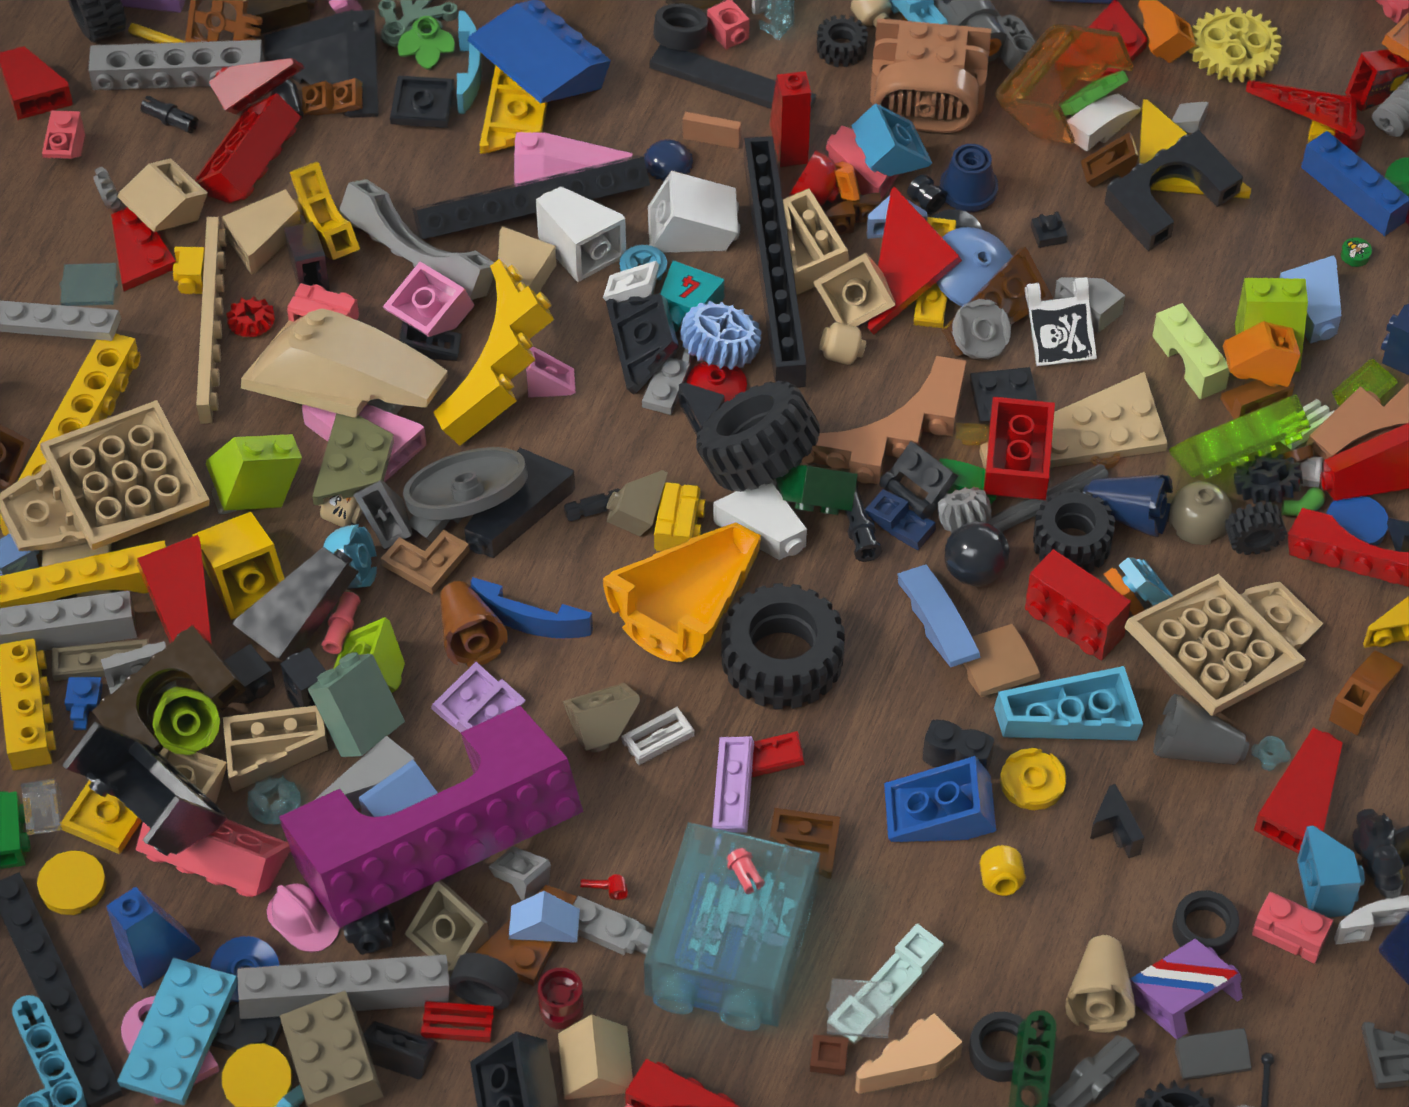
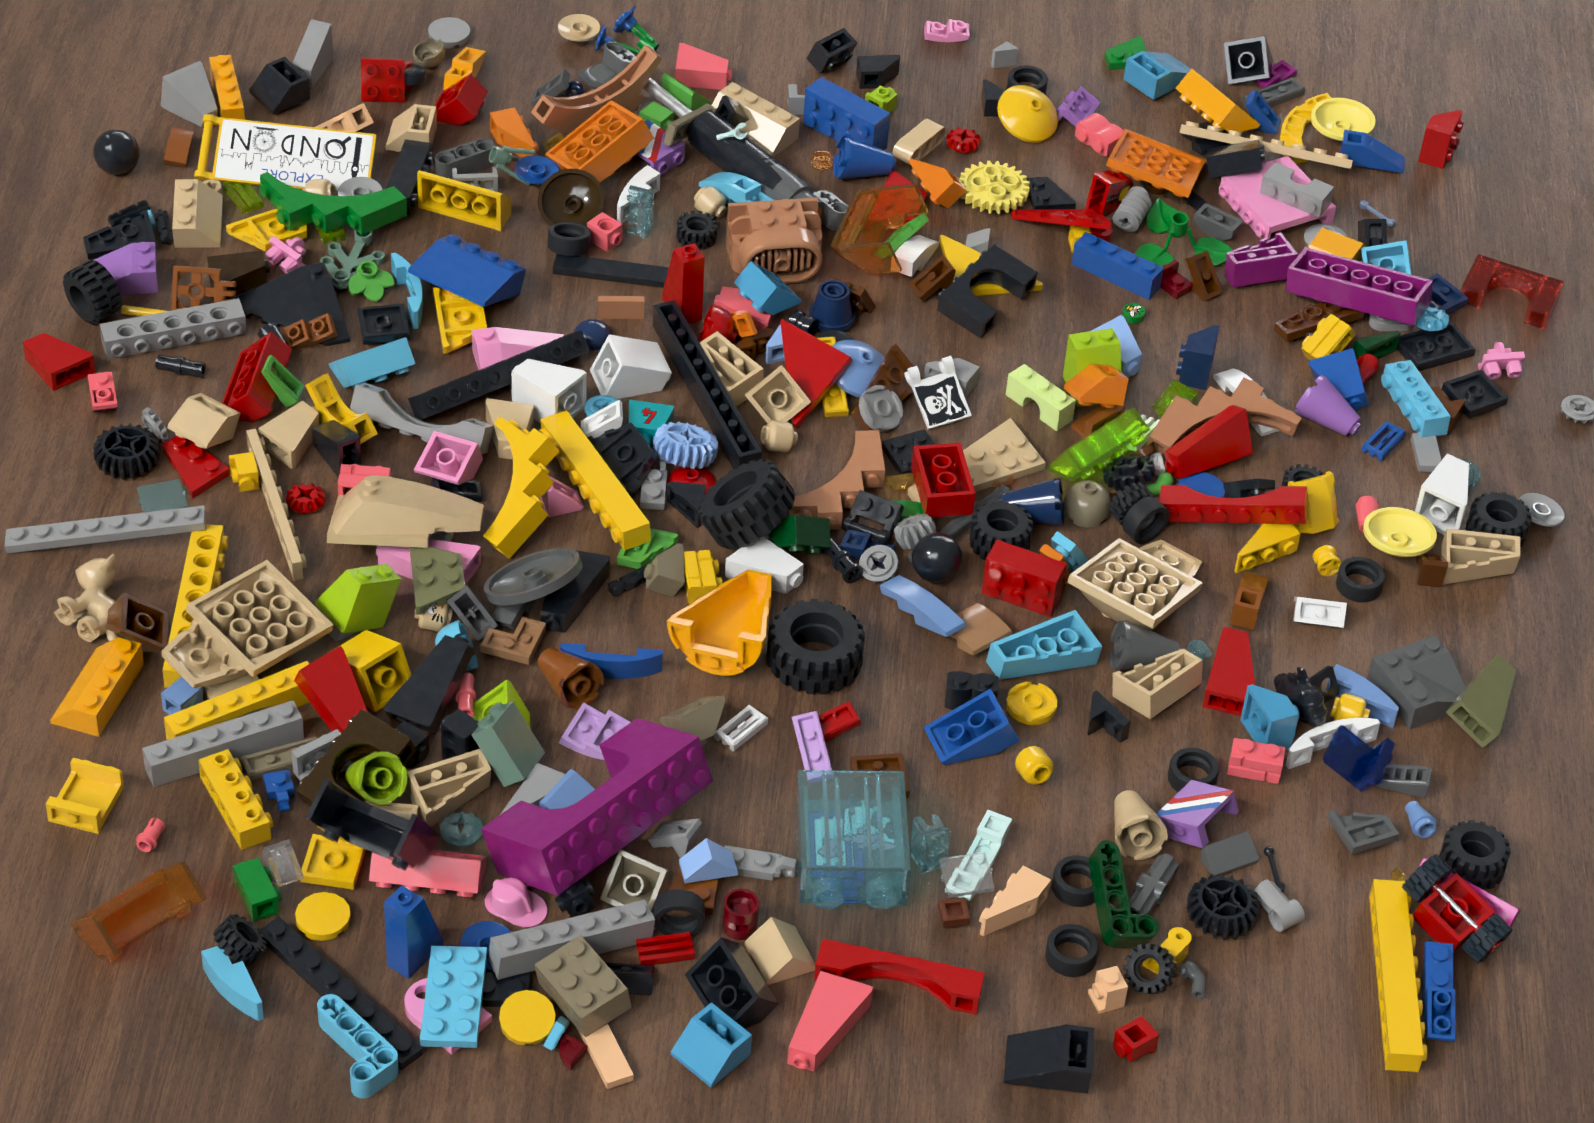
camera: 20 degrees left, 10 degrees down
(48, 219) = (126, 451): none -> black gear
(246, 83) = (241, 329): slope -> none
(273, 178) = (285, 384): none -> bright green slope
(390, 154) = (373, 363): none -> medium azure slope
(594, 363) = (597, 482): none -> yellow brick
(615, 884) = (749, 832): red hand -> none
(625, 462) = (647, 552): none -> bright green wing
(742, 865) = (855, 791): coral pin -> none
(826, 956) = (929, 843): none -> clear light blue hinge
(891, 544) = (878, 553): none -> light grey gear
(1008, 173) = (859, 298): none -> reddish brown wing
(1049, 230) = (903, 334): black tile -> none
(1202, 789) = (1159, 684): none -> tan wedge
(1264, 553) = (1145, 520): none -> black tyre
(1302, 67) = (1047, 195): none -> black wing

